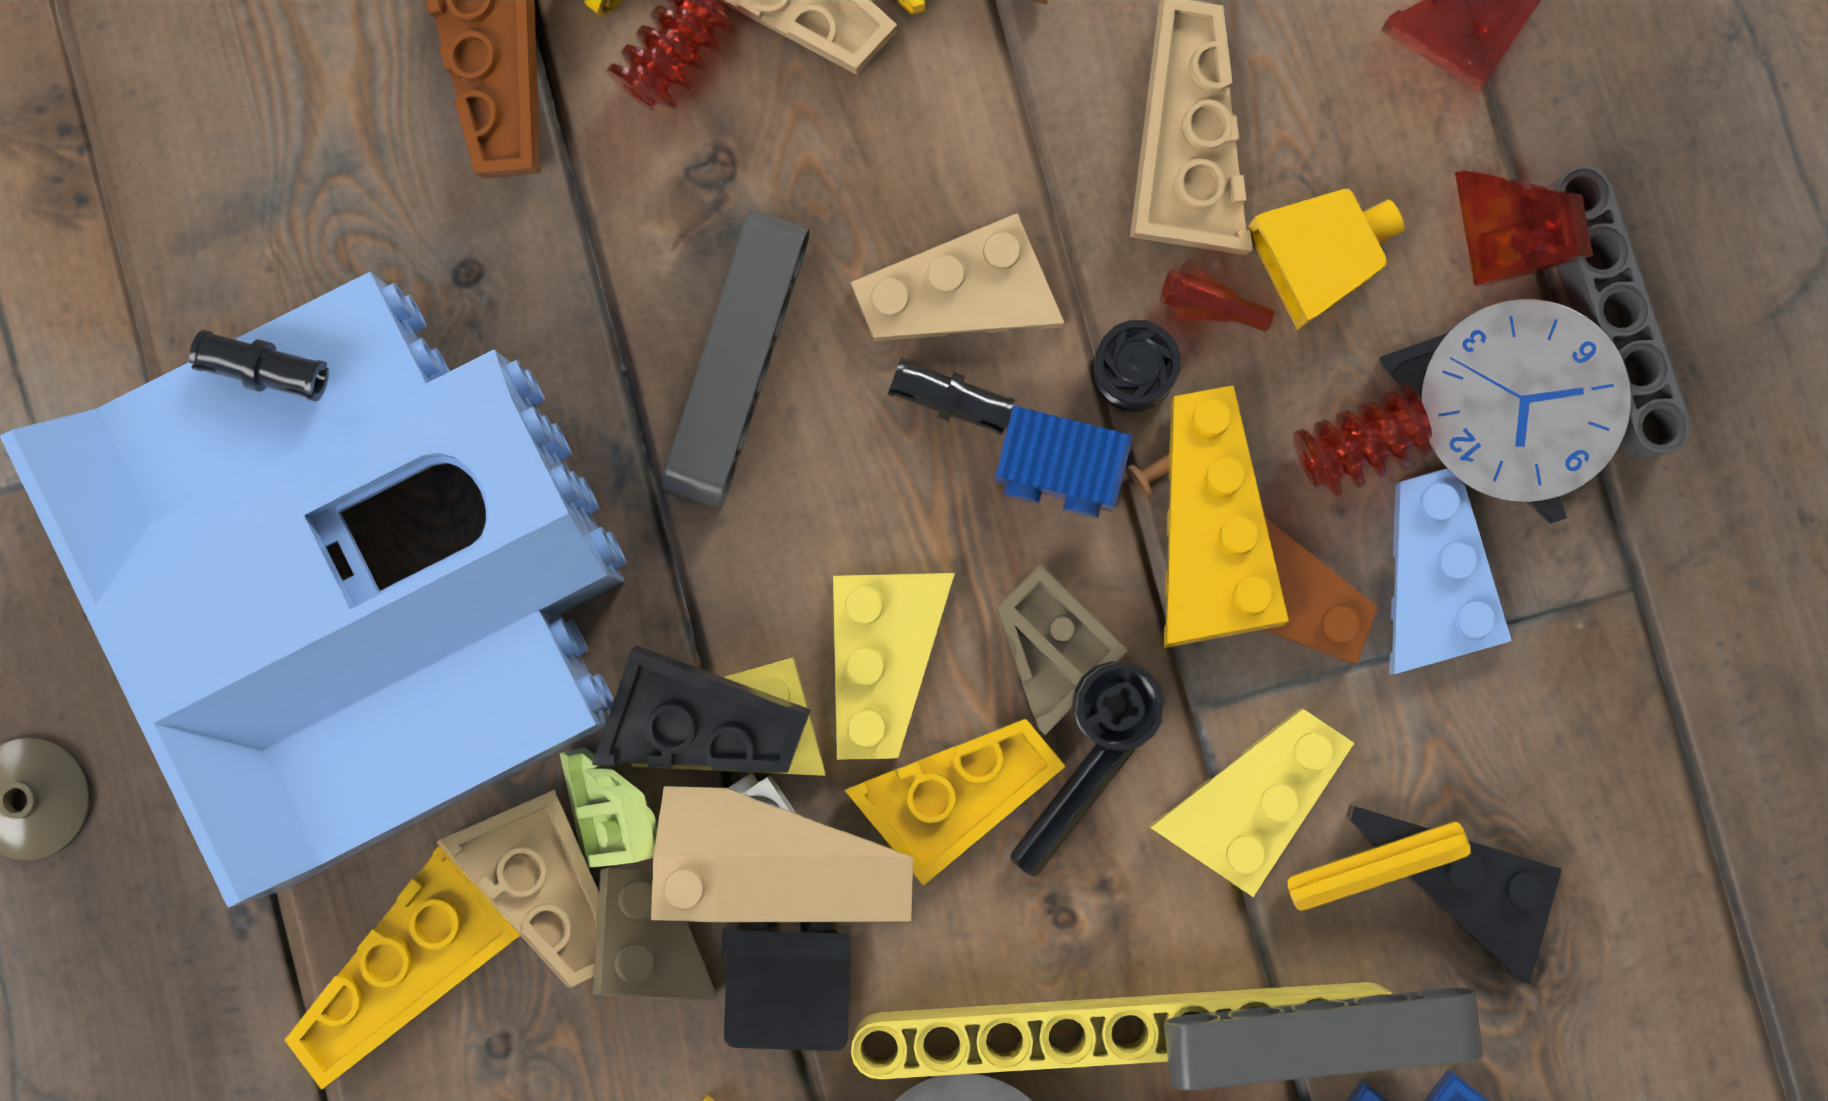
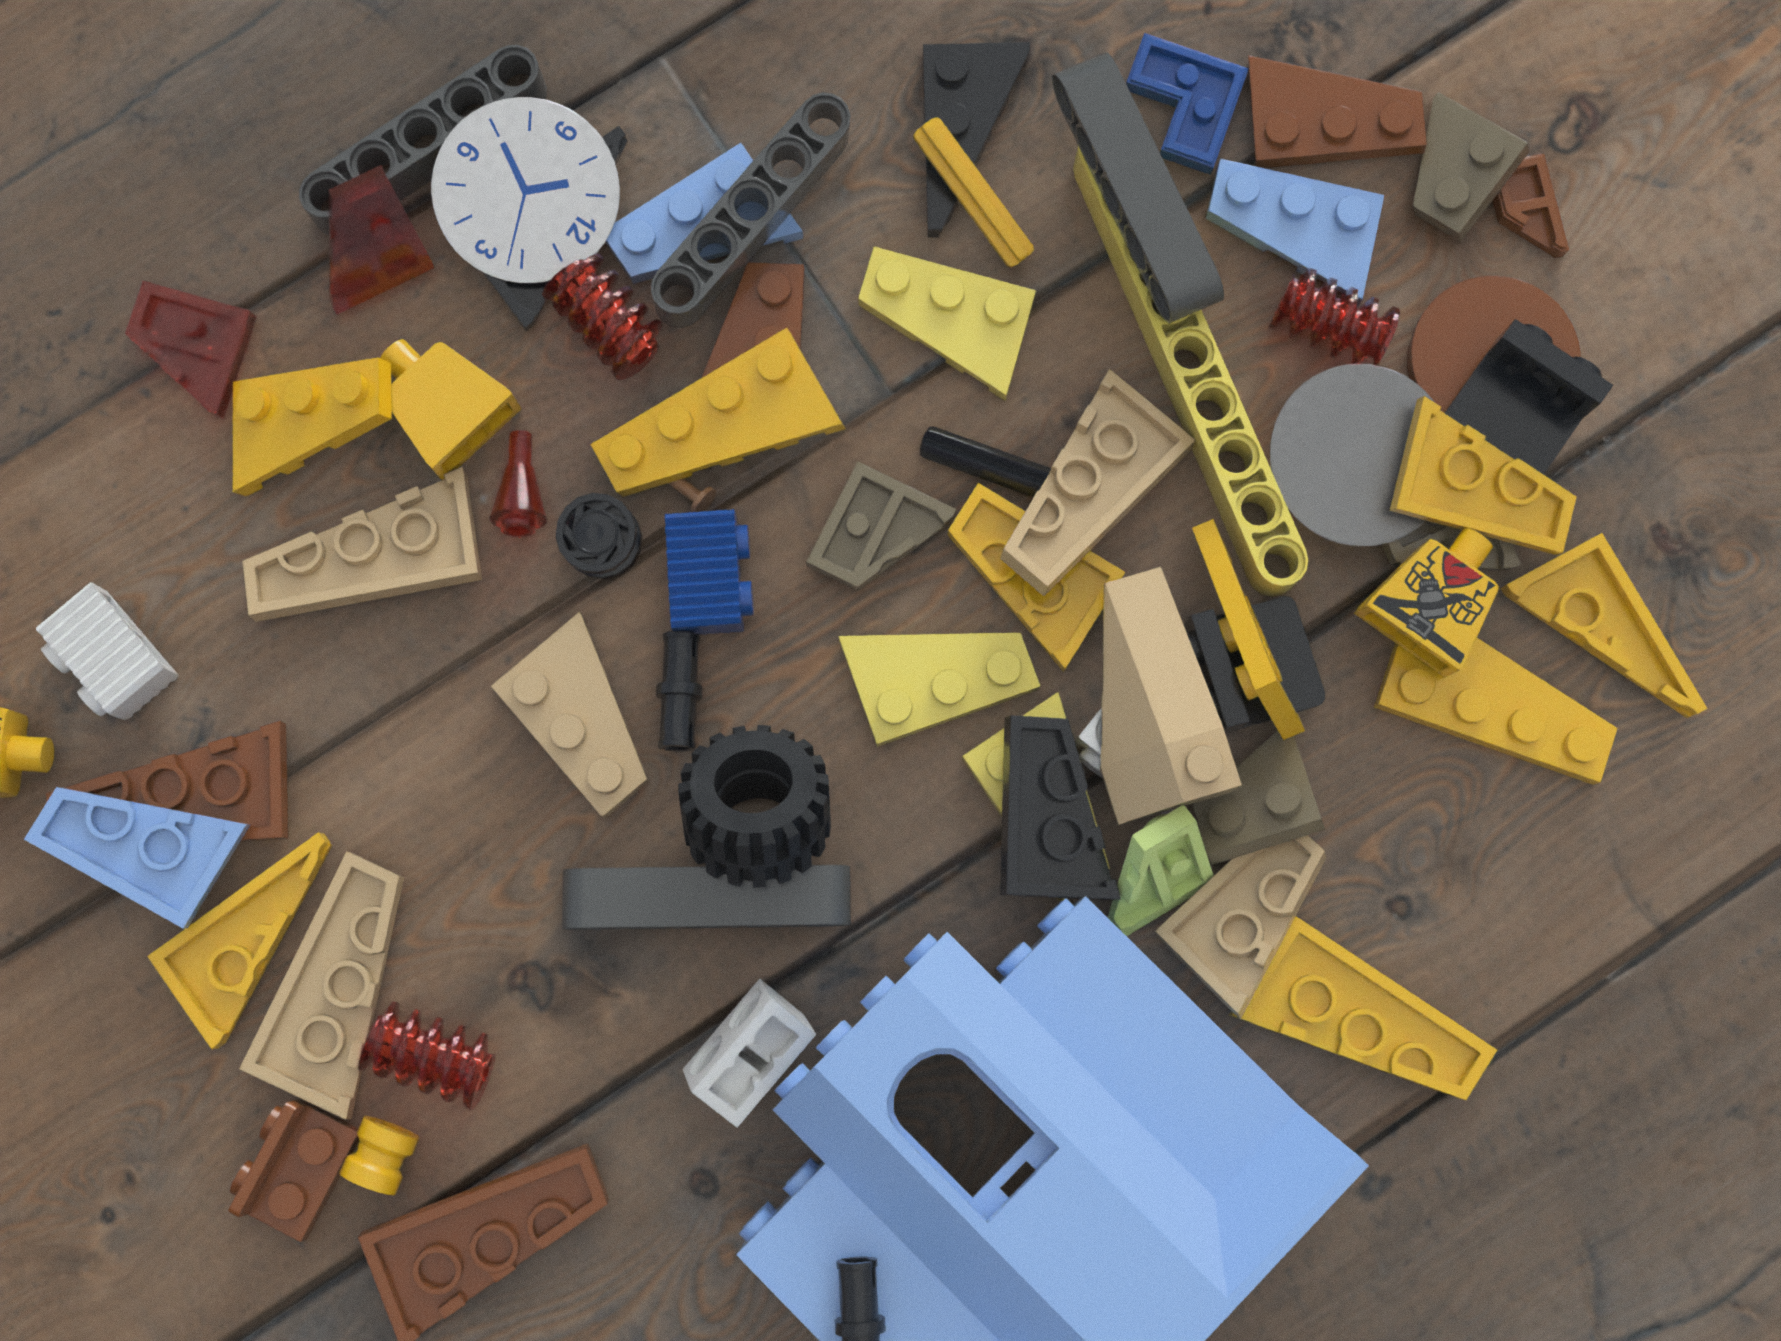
camera: 110 degrees left, 5 degrees down
(568, 350) = (748, 1053): none -> white brick
(817, 984) = (1242, 632): none -> yellow wing
(848, 433) = (764, 842): none -> black tyre
(1034, 898) = (1099, 476): none -> tan wing
(1117, 705) = (910, 451): black wheel -> none
(1355, 106) = (302, 412): none -> yellow wing
(1456, 640) = (756, 184): none -> dark grey beam

